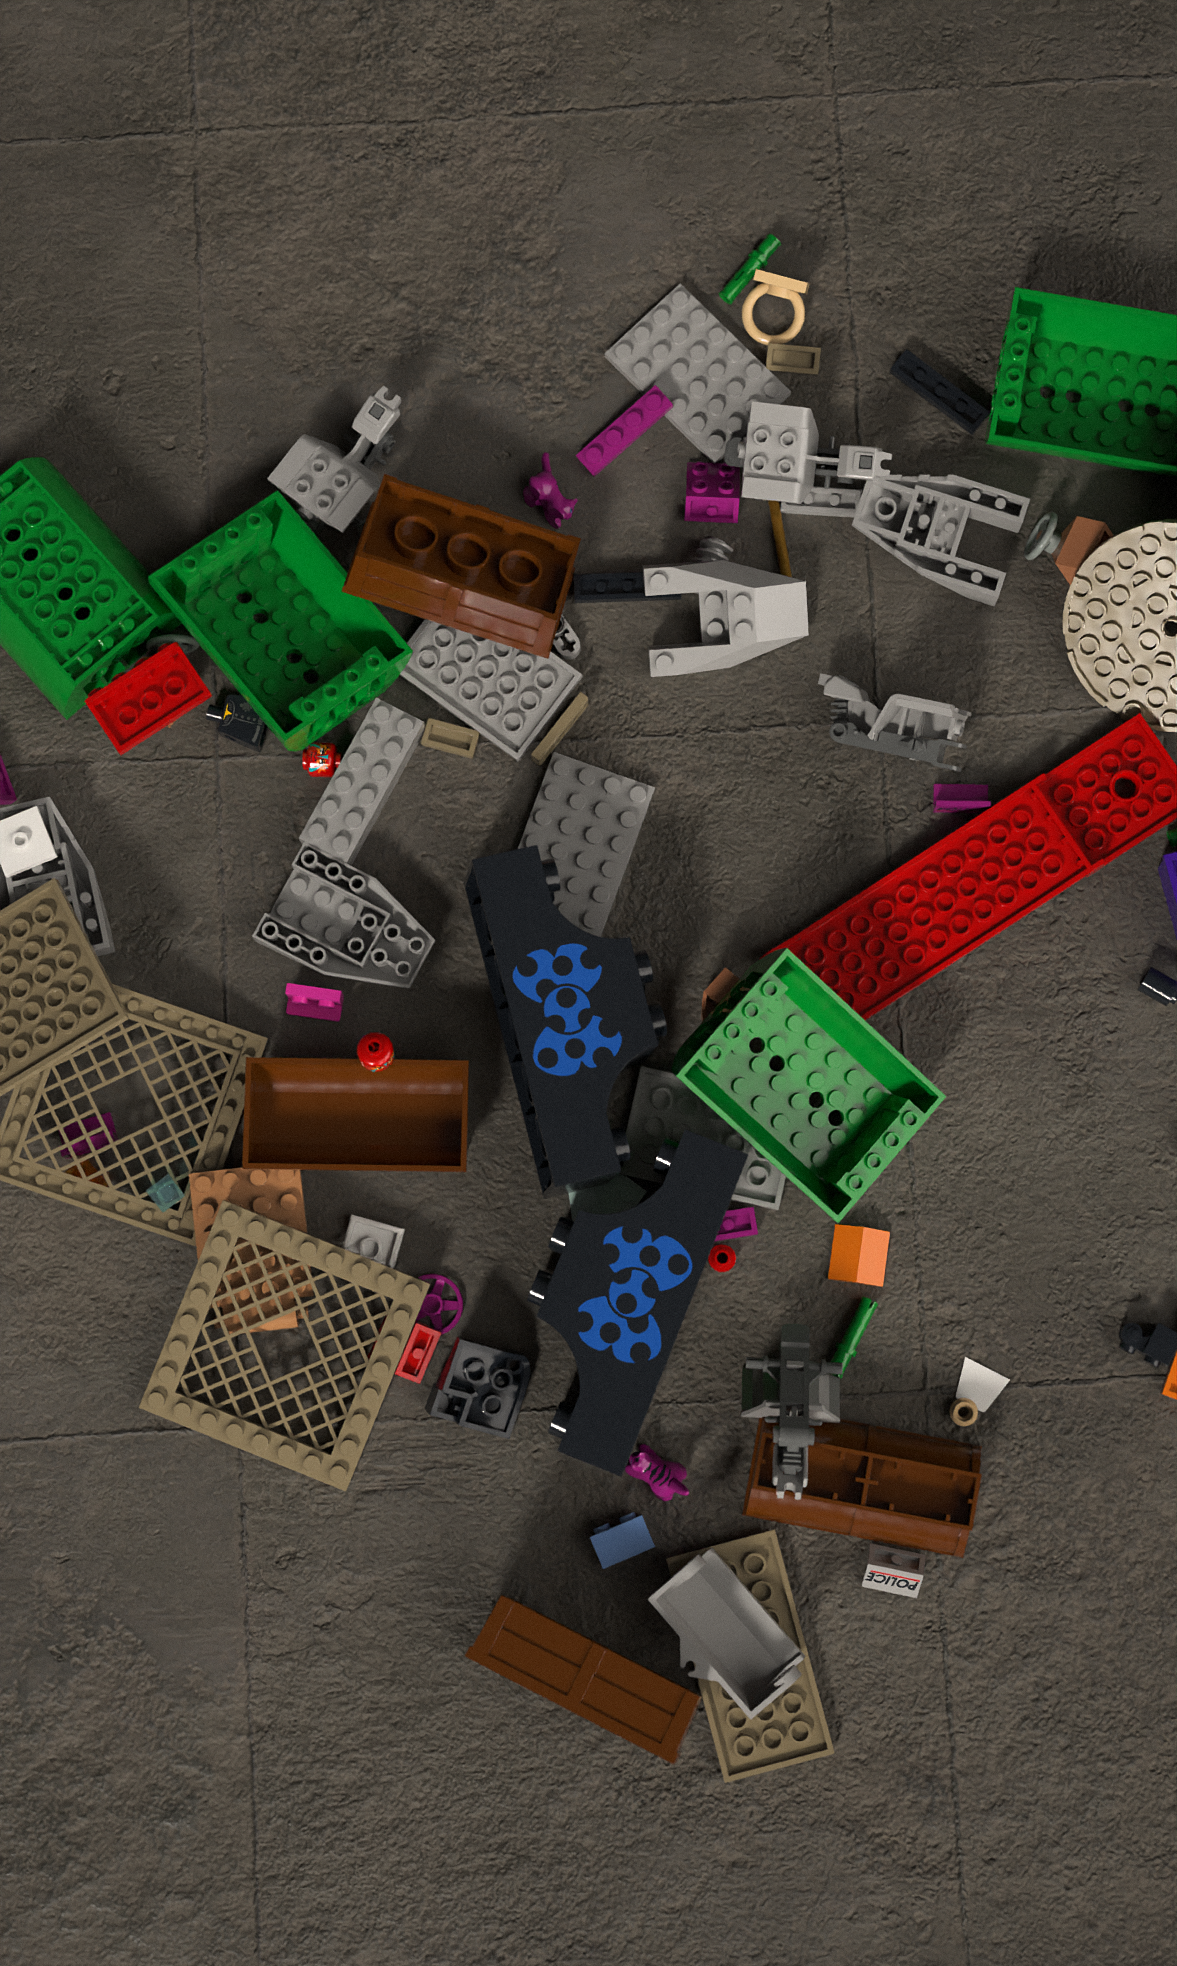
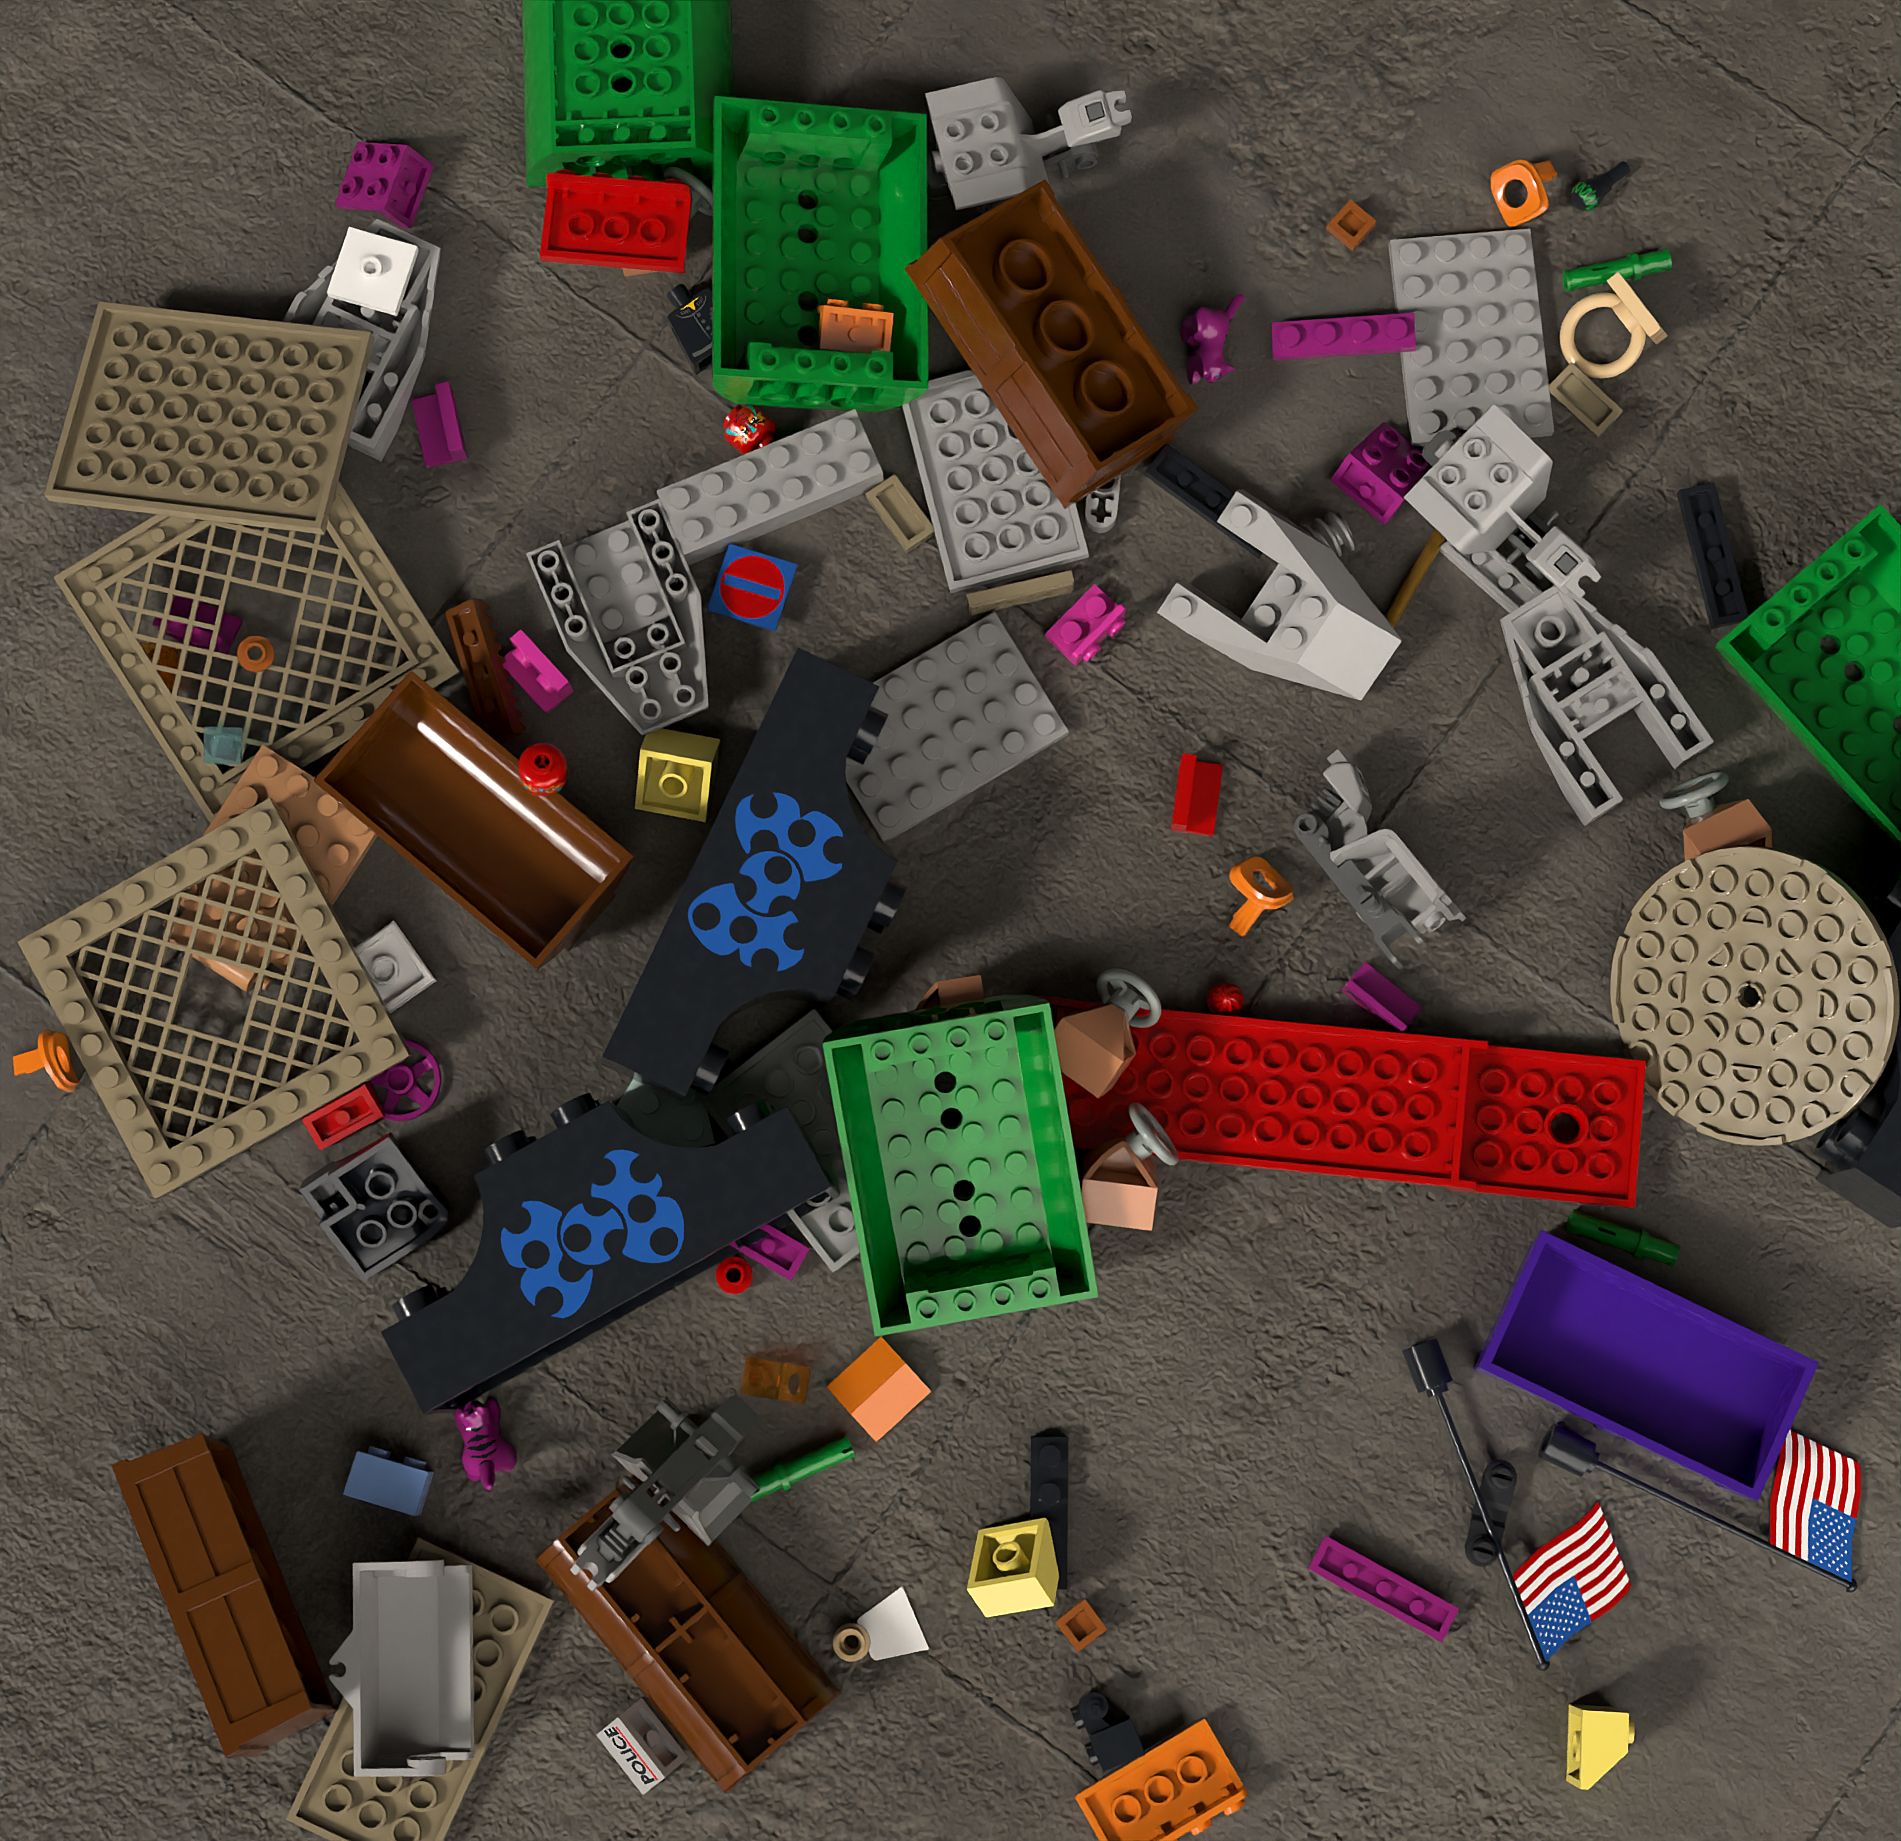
camera: 35 degrees right, 0 degrees up
(133, 904) = (439, 427): none -> magenta panel
(141, 1132) = (255, 665): none -> dark orange plate
(213, 1456) = (51, 1054): none -> orange piece
(281, 1024) = (484, 670): none -> reddish brown gear
(338, 650) = (854, 329): none -> orange bracket
(400, 850) = (752, 587): none -> piece
(447, 994) = (677, 774): none -> light yellow slope
(575, 362) = (1351, 225): none -> dark orange plate
(613, 716) = (1086, 625): none -> dark pink bracket
(657, 251) = (1532, 176): none -> orange piece
(697, 235) = (1590, 192): none -> black piece
(758, 766) = (1196, 796): none -> red panel
(794, 1299) = (771, 1380): none -> clear orange bracket
(822, 946) = (1097, 1041): none -> nougat piece
(843, 795) = (1258, 897): none -> orange piece
(872, 870) = (1225, 999): none -> red plate
(901, 1018) = (1121, 1179): none -> nougat piece
(1014, 1246) = (1050, 1494): none -> black plate
(1022, 1292) = (1014, 1568): none -> light yellow slope
(1085, 1294) = (1081, 1625): none -> dark orange plate

